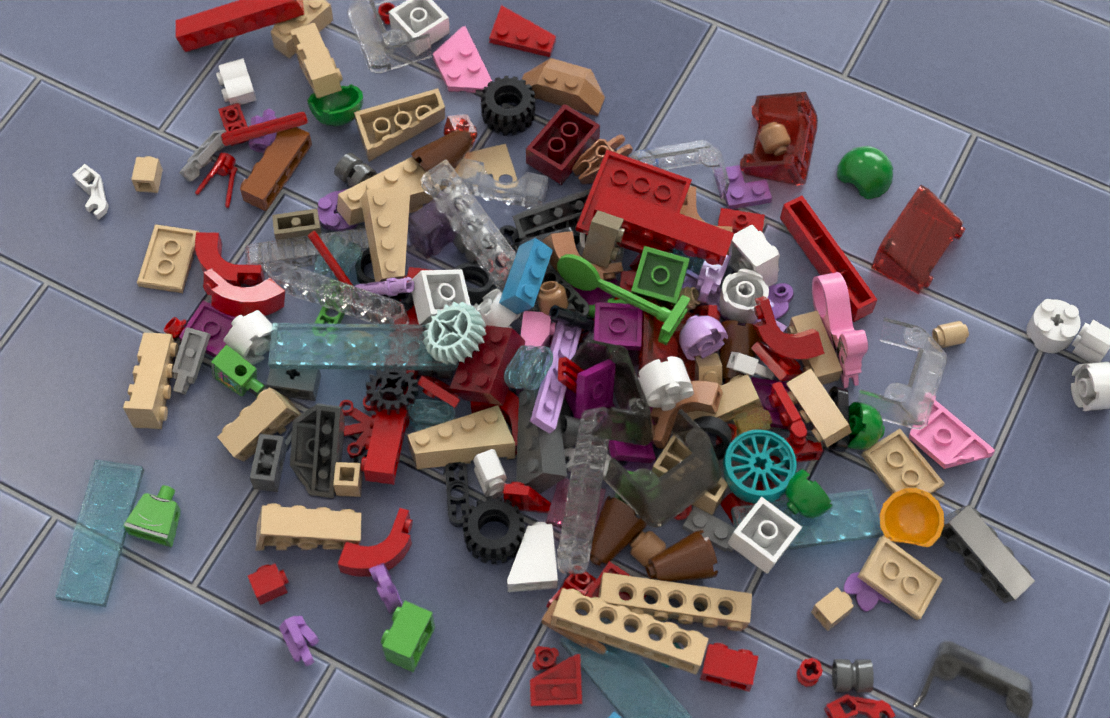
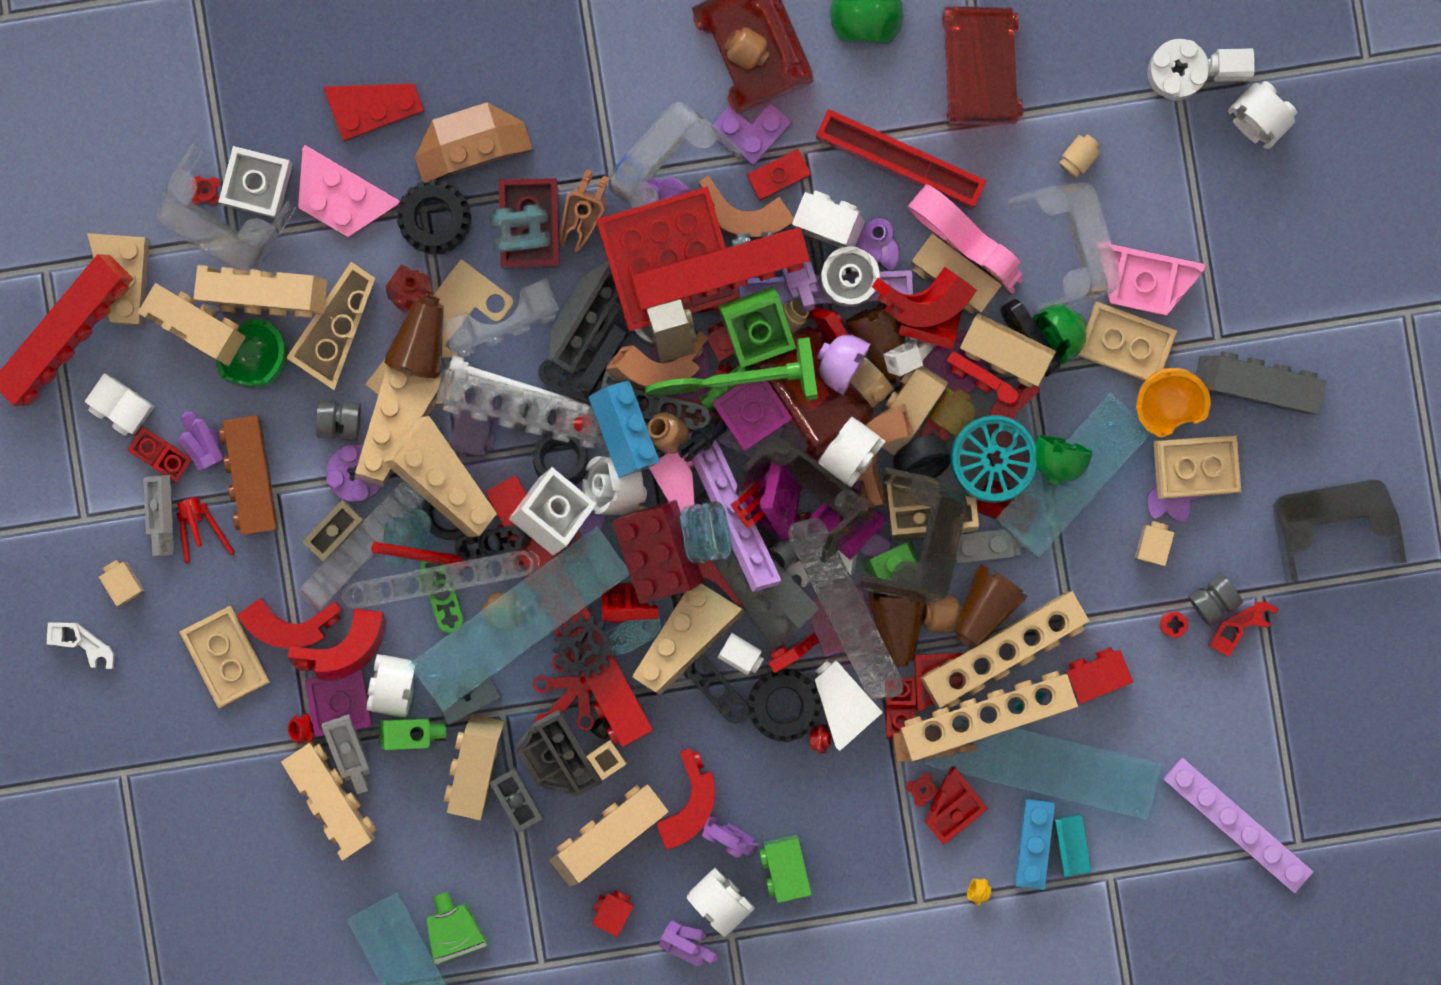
camera: 40 degrees left, 25 degrees up
(264, 128) = (207, 447): red axle -> none
(344, 625) = (720, 902): none -> white brick
(370, 68) = (260, 291): none -> tan wedge
(390, 287) = (494, 537): lavender pin -> none
(454, 333) = (610, 530): light aqua gear -> none
(500, 571) = (820, 739): none -> red plate
(554, 132) = (505, 219): none -> clear light blue brick
(764, 535) = (1049, 533): white brick -> none

